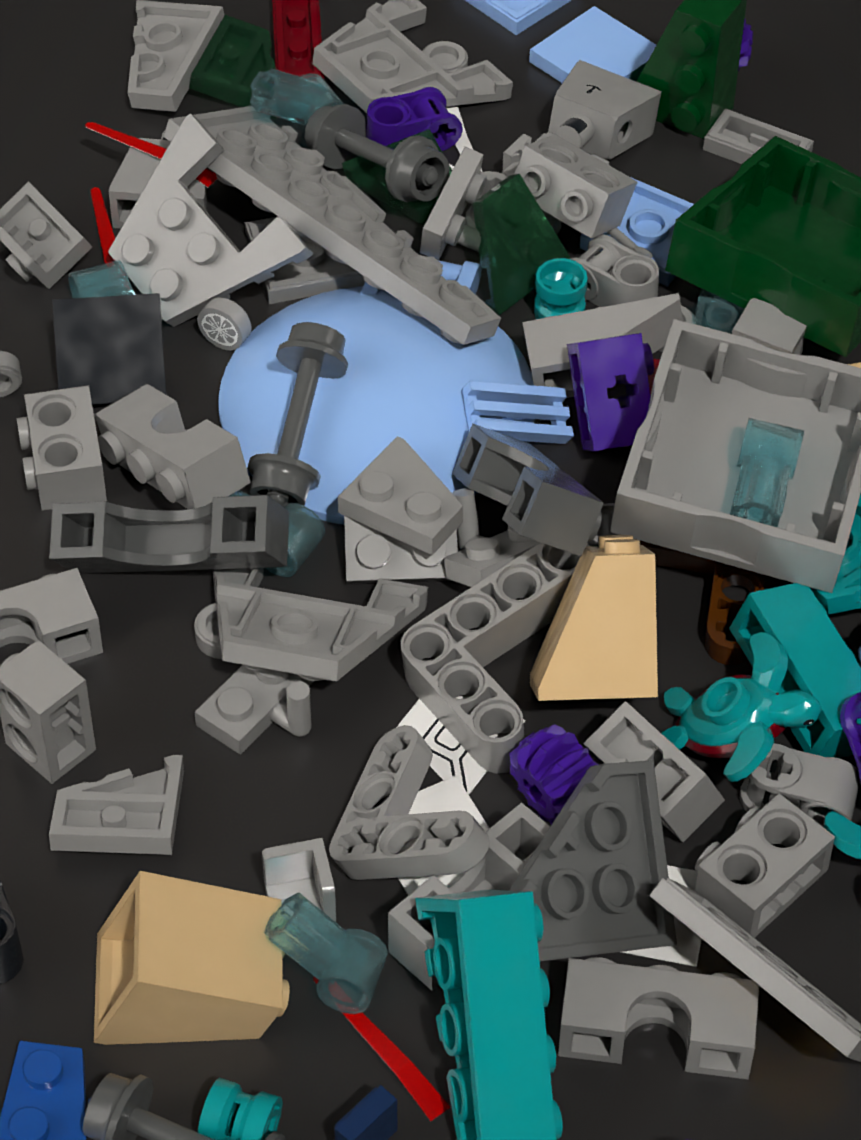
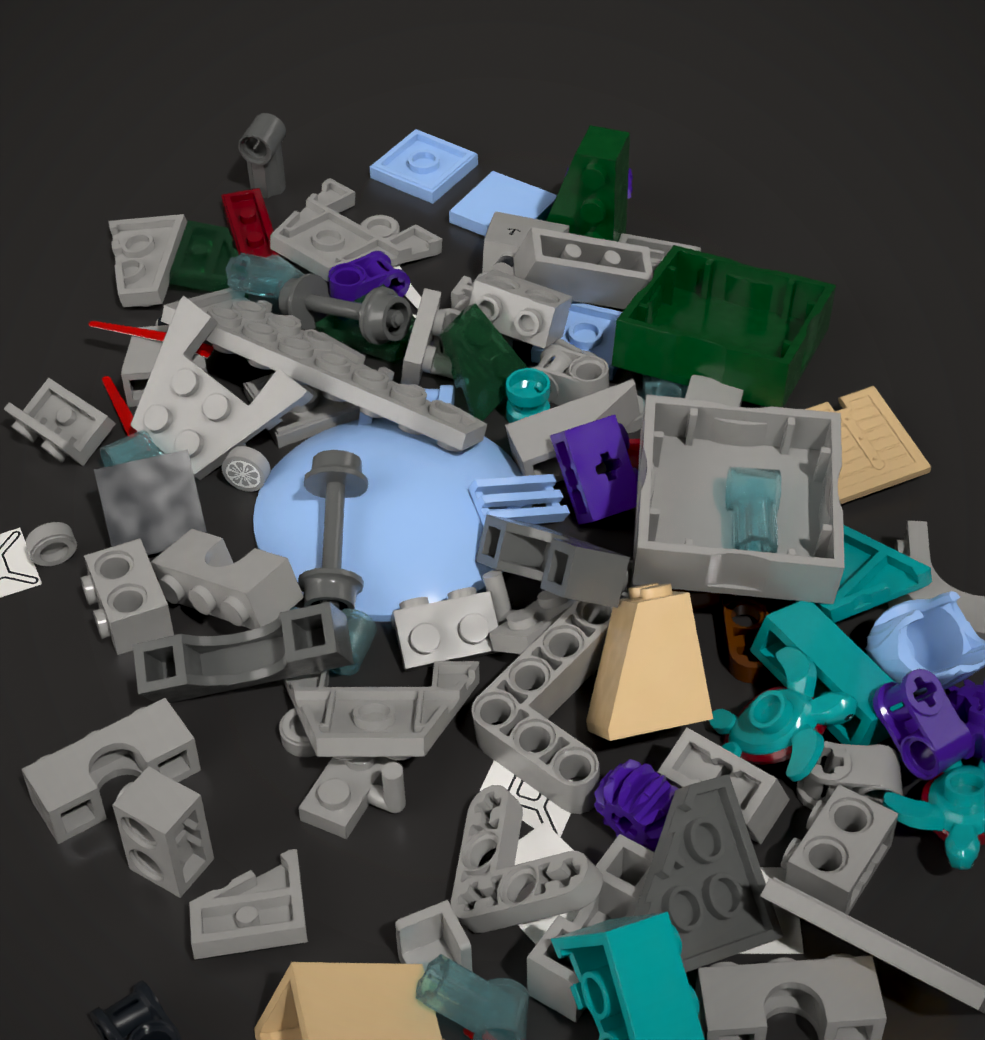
camera: 10 degrees left, 5 degrees down
(403, 499) = (442, 588): light grey wing -> none
(661, 146) = (584, 266): none -> light grey brick

